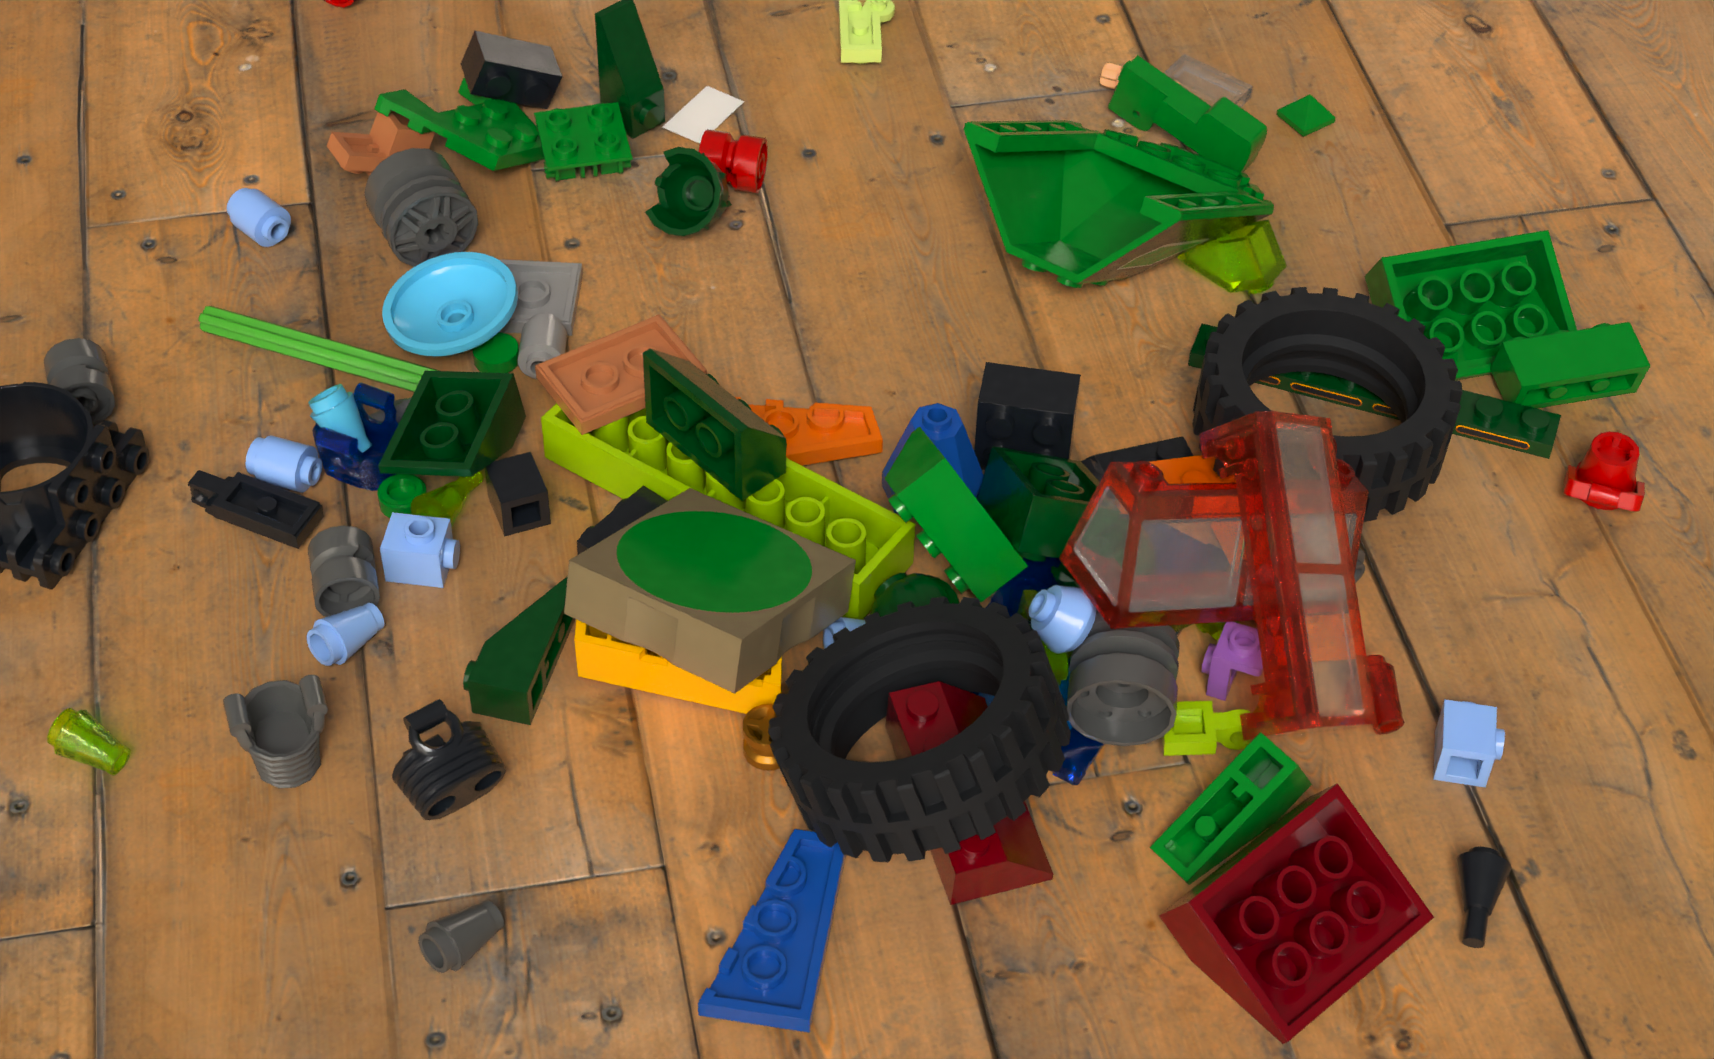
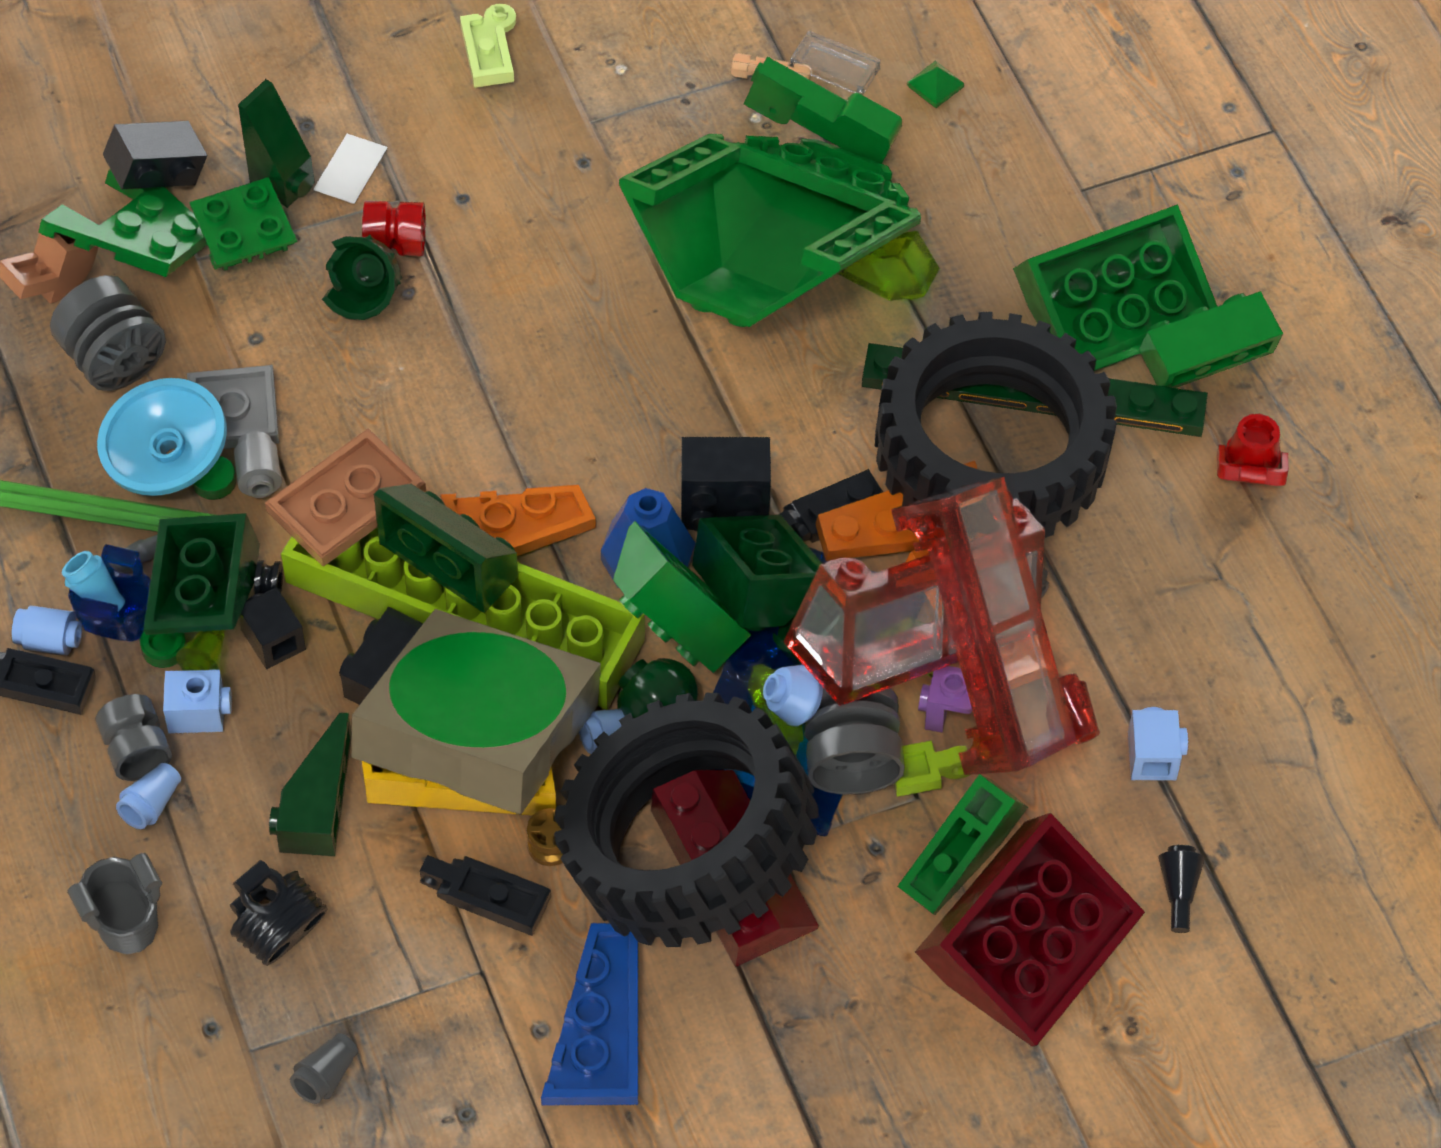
camera: 10 degrees left, 10 degrees up
(524, 443) = (268, 577): none -> black bush
(687, 781) = (487, 891): none -> black hinge

